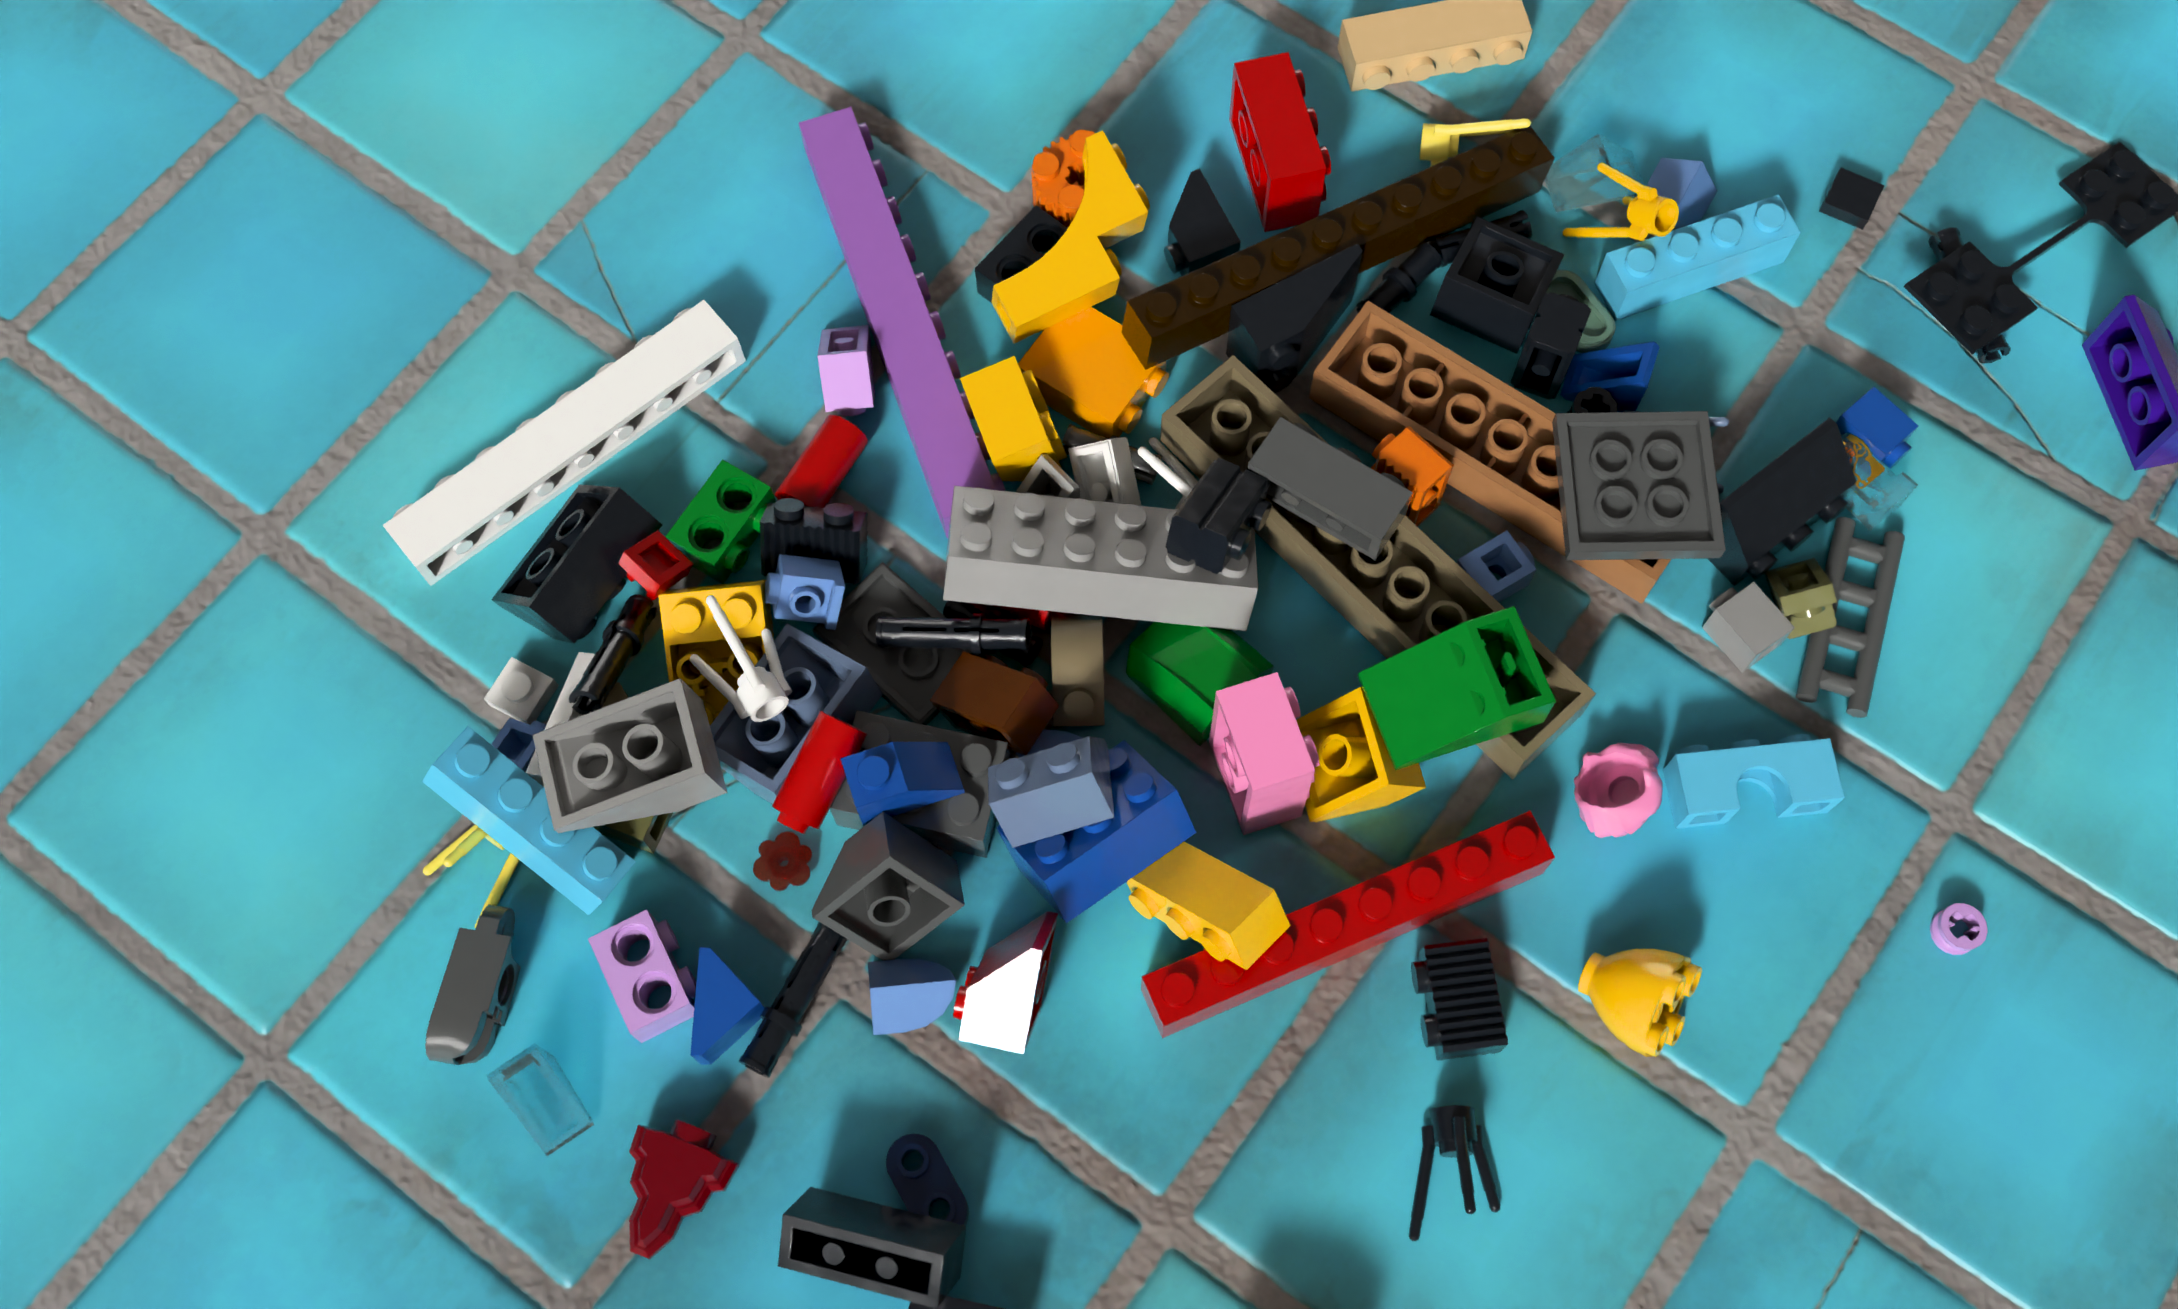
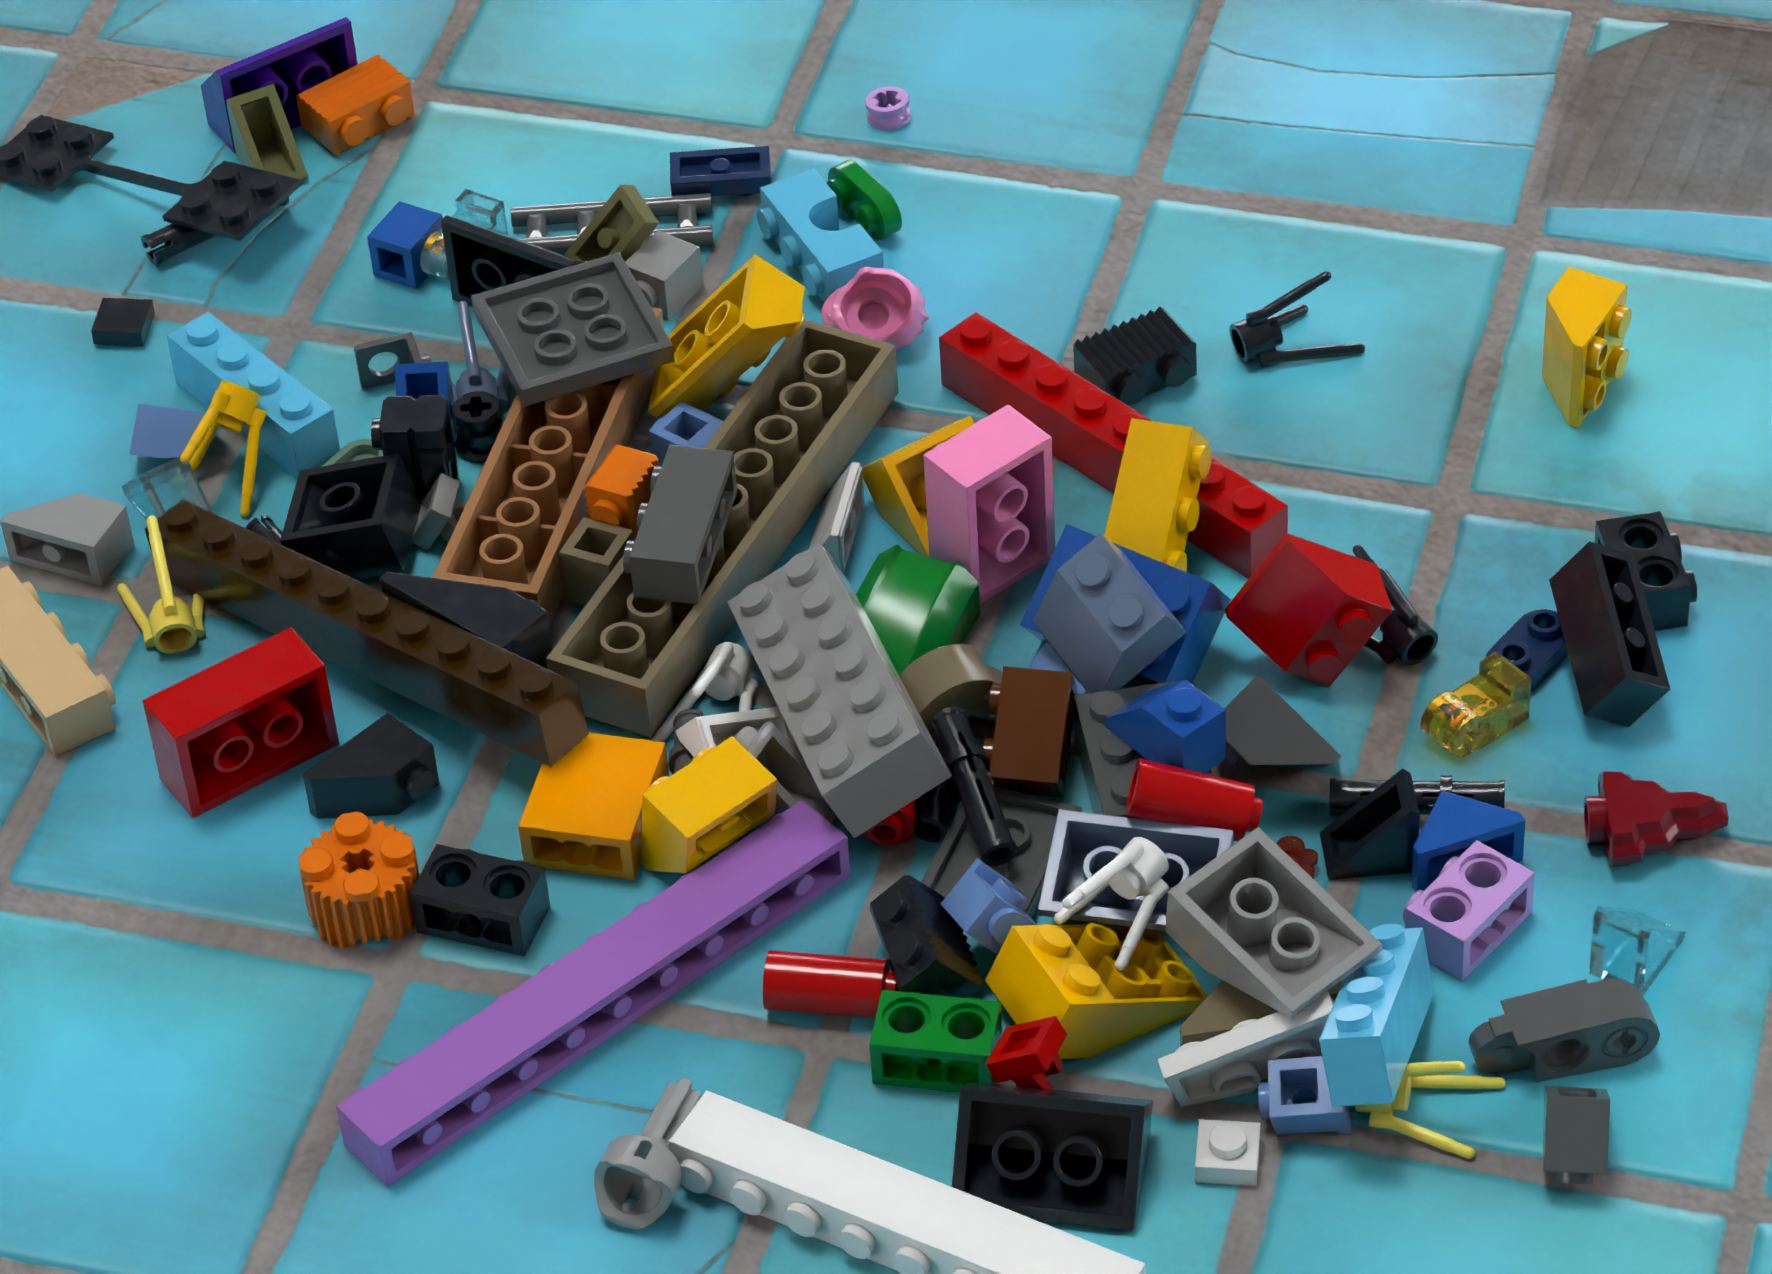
camera: 110 degrees left, 25 degrees down
(386, 949) = (1575, 1133): none -> dark grey slope
(620, 641) = (1129, 1054): black pin -> none
(703, 282) = (643, 1164): none -> light grey piece
(765, 939) = (1375, 833): none -> black slope
(846, 370) = (686, 1006): lavender slope -> none
(866, 1097) = (1479, 708): none -> clear yellow leg
(908, 994) = (1358, 720): medium blue brick -> none
(992, 1079) = (1404, 630): none -> black plant
(1078, 267) = (491, 800): yellow arch -> none
(1218, 516) = (760, 578): black brick -> none
(1334, 654) = (841, 515): none -> white slope
(1359, 433) = (590, 557): none -> dark tan brick
(1458, 689) = (856, 374): green slope -> none
(1489, 355) = (438, 512): none -> light grey tile
(1567, 97) = (70, 537): none -> light grey slope
(1577, 612) = (728, 336): none -> yellow slope
(1641, 995) = (1068, 246): yellow piece -> none
(1685, 391) = (401, 345): none -> dark grey bracket
(1818, 837) = (865, 199): none -> green plate
(1895, 731) = (720, 171): none -> dark blue plate
(2066, 356) = (263, 133): none -> olive slope
(2106, 446) = (356, 104): none -> orange brick

